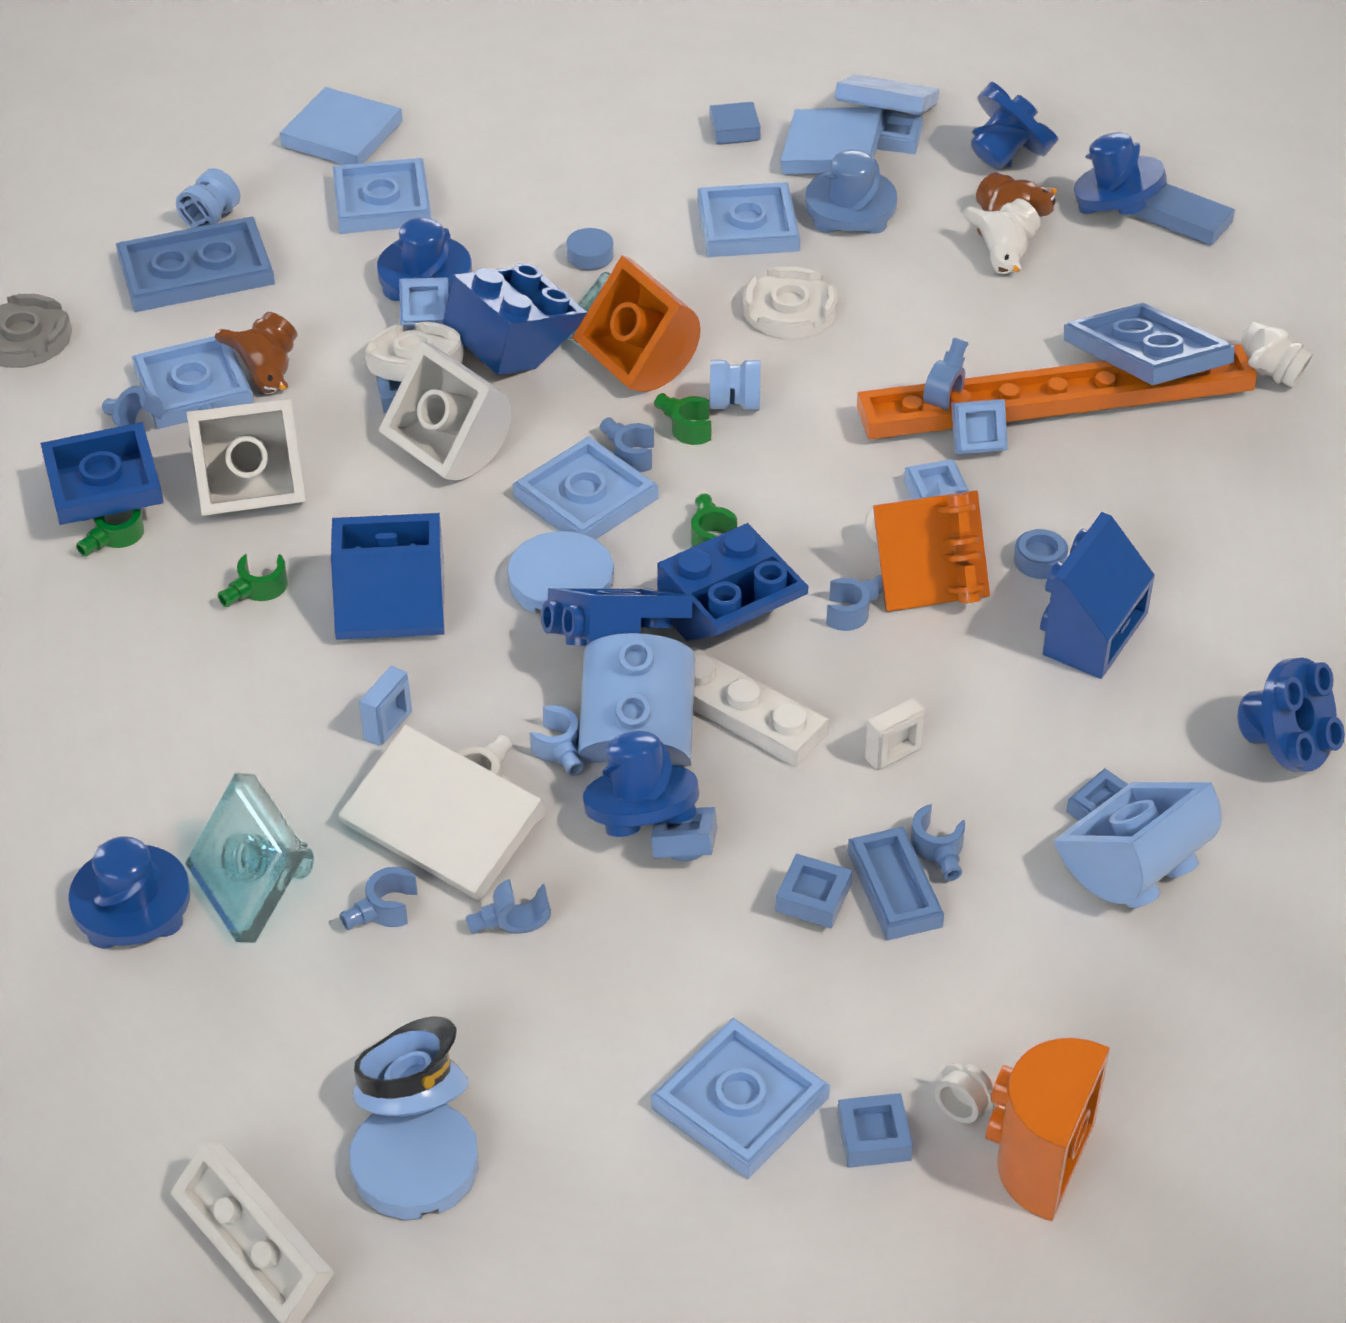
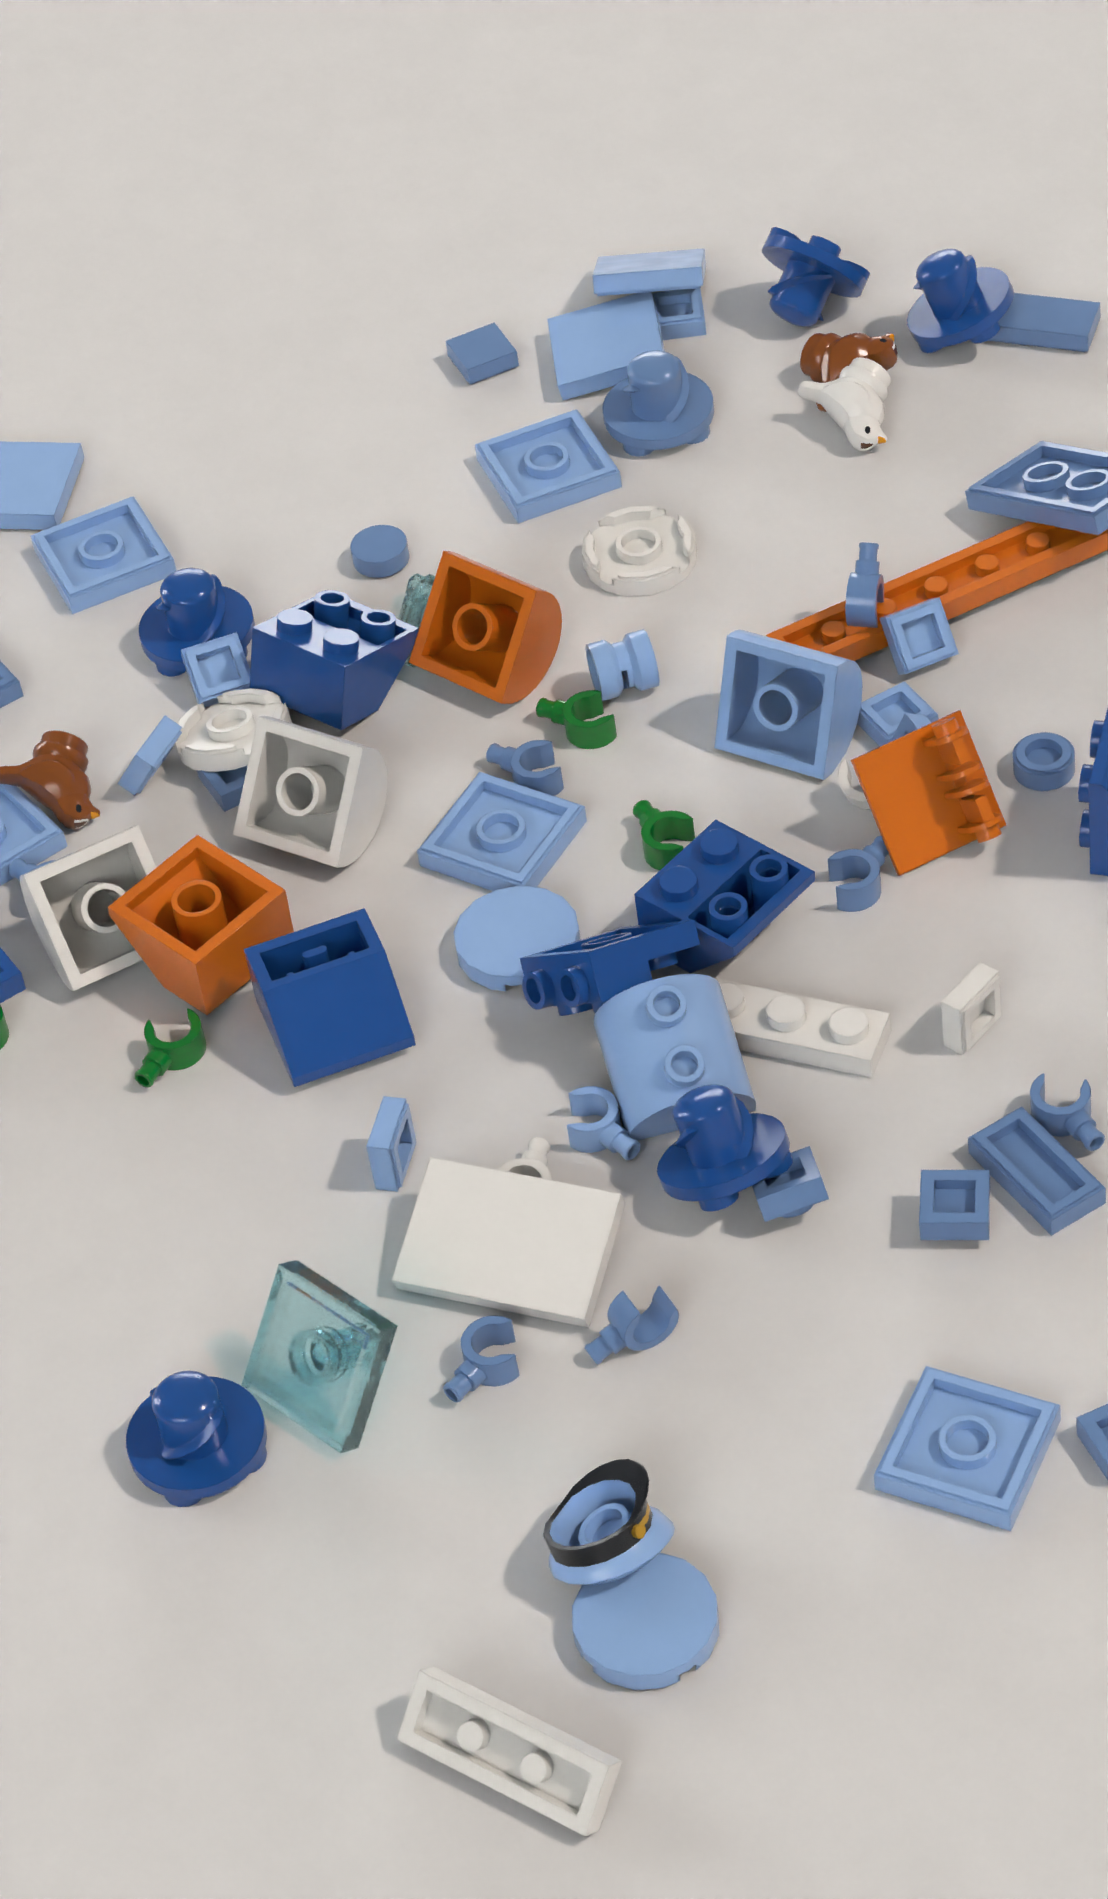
camera: 10 degrees left, 0 degrees up
(311, 482) = (198, 918): none -> orange slope
(342, 353) = (150, 756): none -> light blue tile
(848, 449) = (787, 704): none -> light blue brick

